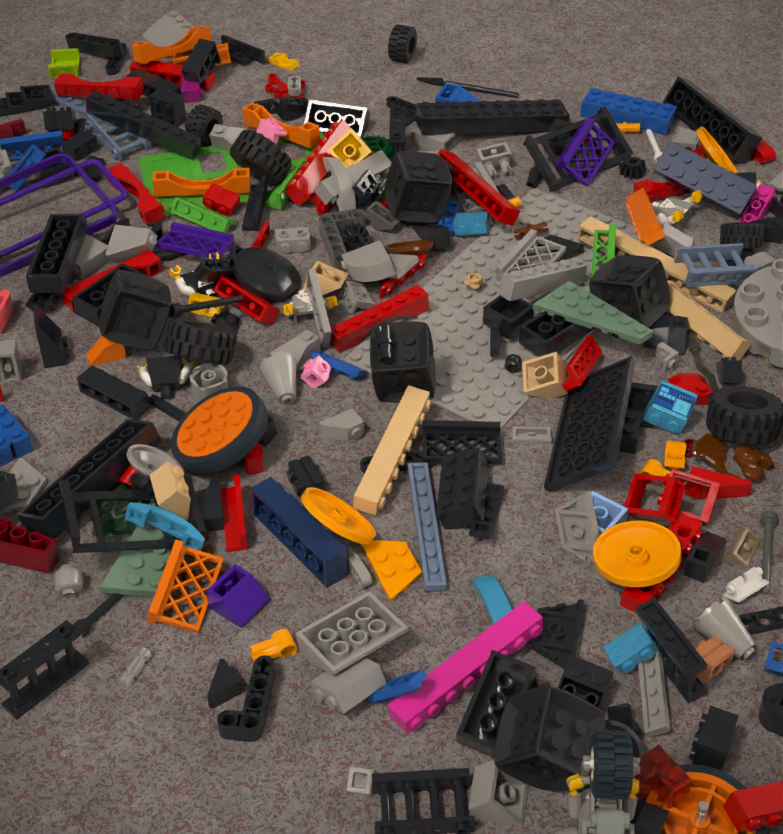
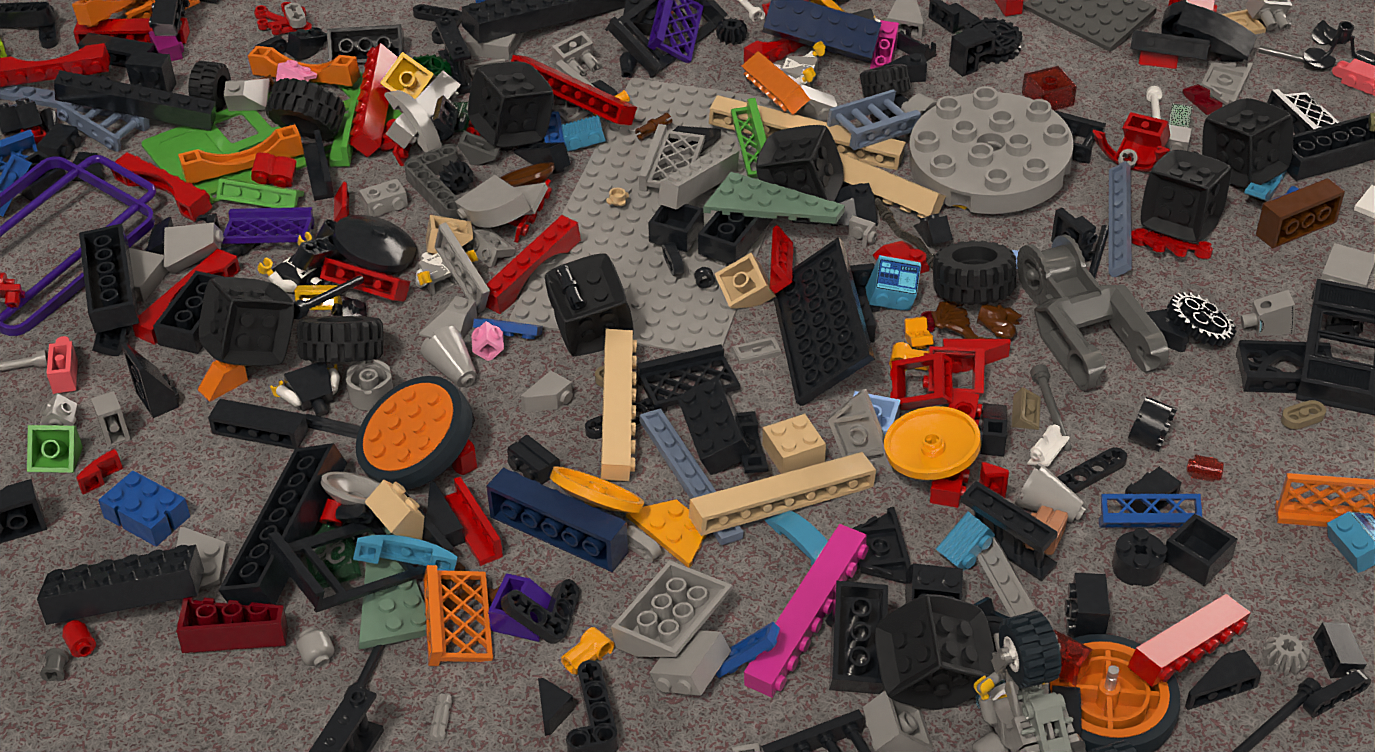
camera: 20 degrees left, 0 degrees up
(258, 611) = (550, 625): none -> black beam
(492, 561) = (781, 493): none -> tan brick
(523, 522) = (793, 444): none -> tan brick
(678, 604) = (994, 478): none -> red slope

